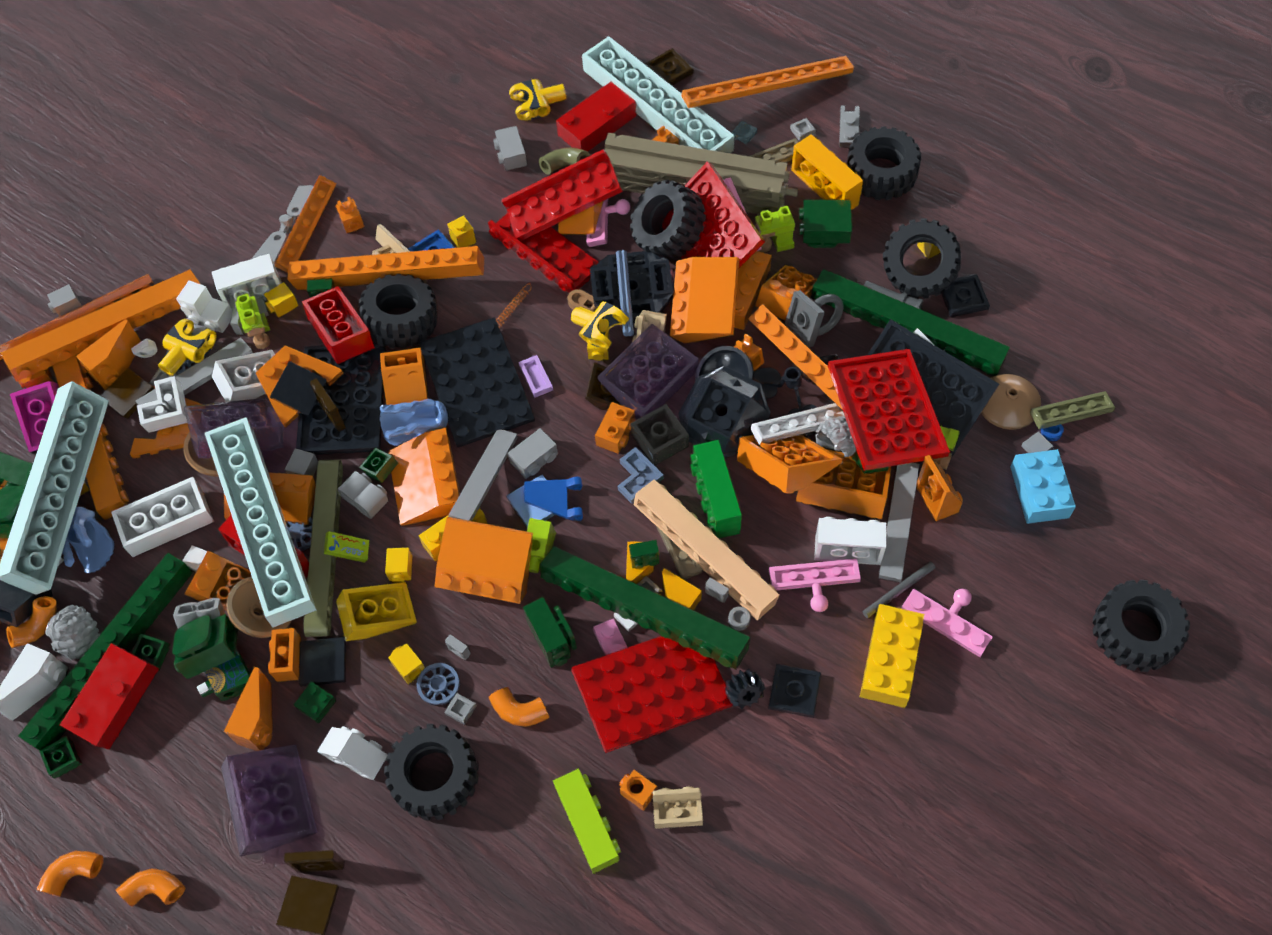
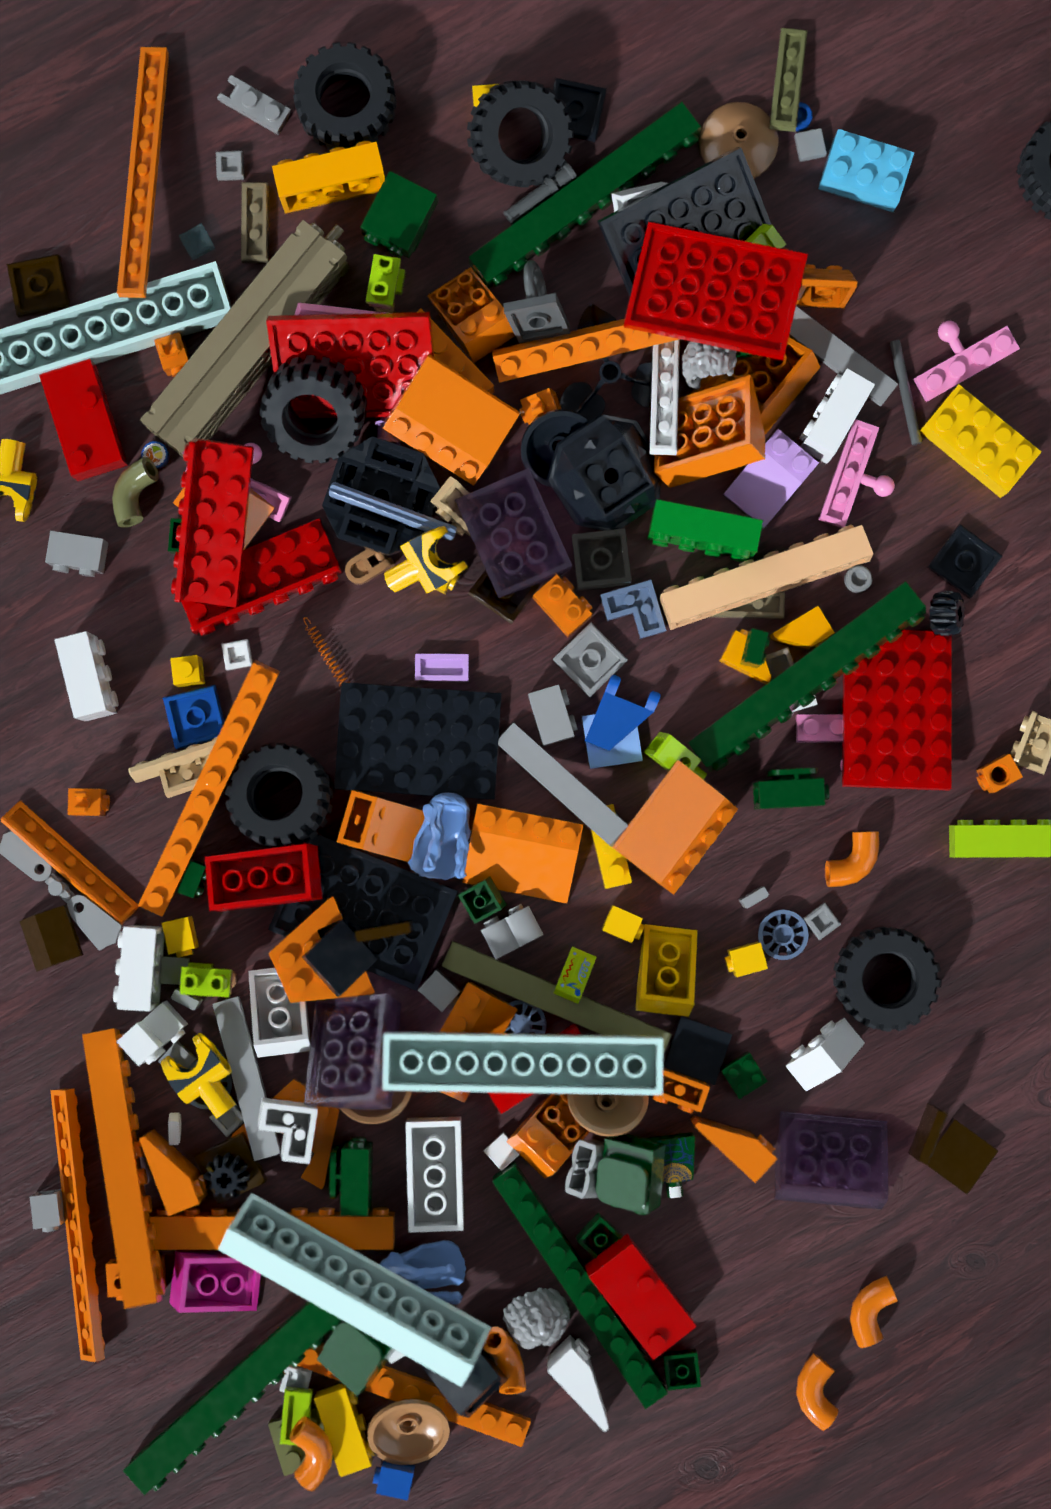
camera: 70 degrees left, 25 degrees up
(118, 387) = (220, 1183): none -> black gear
(142, 464) = (352, 1176): none -> dark green brick
(252, 233) = (51, 937): none -> dark brown slope
(430, 179) = (86, 676): none -> white brick
(490, 258) = (237, 654): none -> white tile
(588, 463) = (590, 659): none -> light grey tile
(716, 590) = (818, 588): light grey tile -> none
(781, 523) = (770, 482): none -> lavender slope

